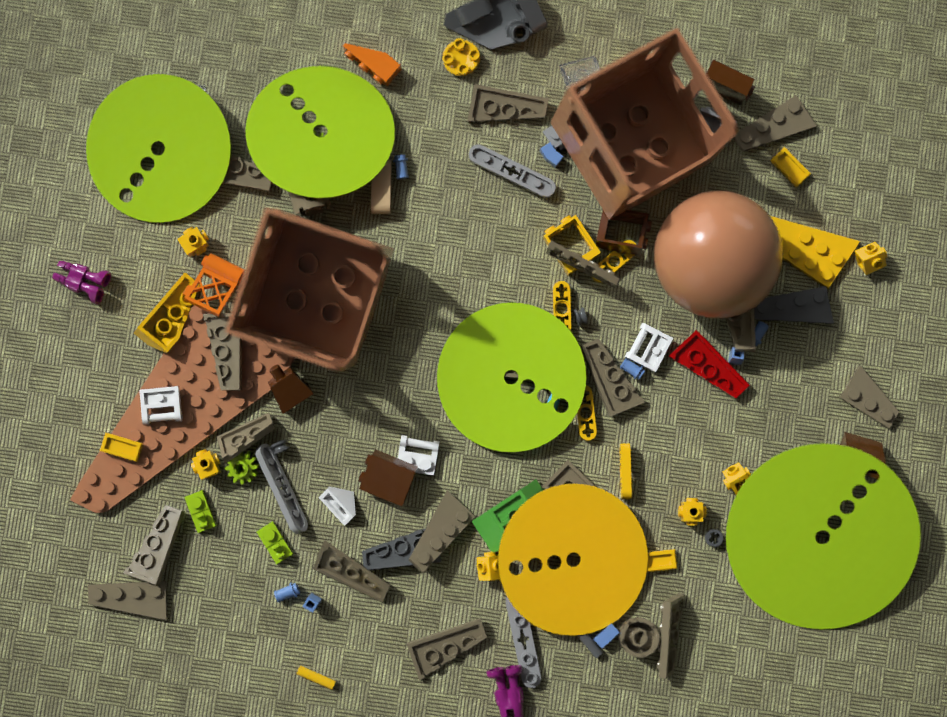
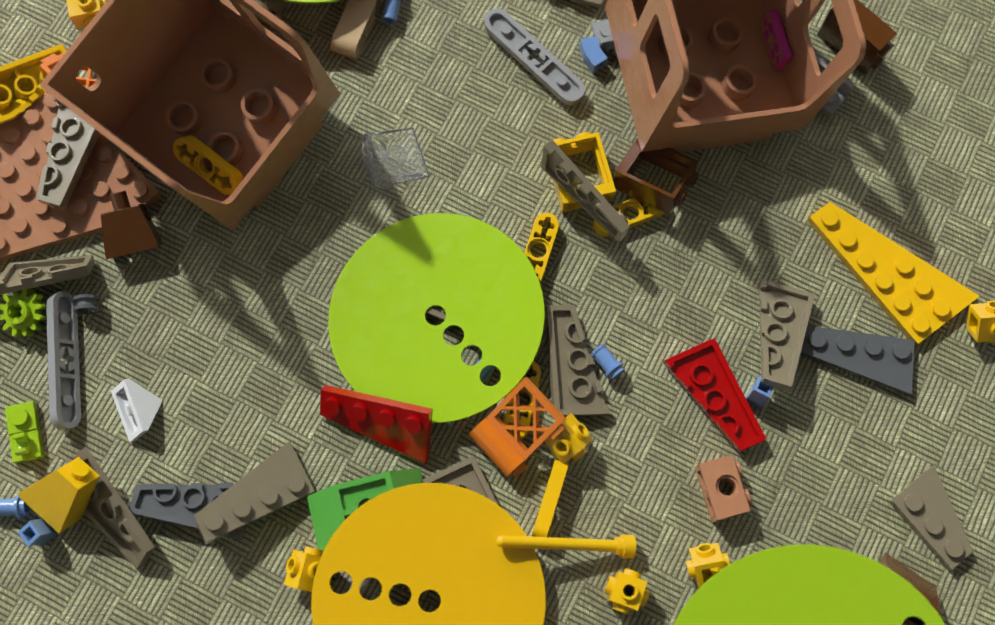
camera: 15 degrees right, 10 degrees down
(318, 572) = (62, 494): none -> yellow slope
(333, 325) = (196, 164): none -> yellow beam
(387, 477) = (212, 393): reddish brown brick -> none
(425, 463) = (264, 388): white plate -> none
(443, 278) = (393, 157): none -> clear slope
(508, 457) = (385, 420): none -> red wing
(580, 316) = (560, 268): dark grey bush -> none
(586, 447) = (505, 446): none -> orange piece
(624, 429) = (571, 441): none -> yellow brick
(655, 350) = (647, 347): white plate -> none
(674, 107) = (776, 40): none -> dark pink tile
(680, 484) = (623, 545): none -> yellow piece
(718, 254) = (781, 232): nougat piece -> none
(721, 421) = (719, 505): none -> nougat brick
(760, 330) = (804, 369): medium blue pin -> none
(777, 124) = (911, 110): dark tan wing -> none
(790, 167) = (909, 171): yellow tile -> none

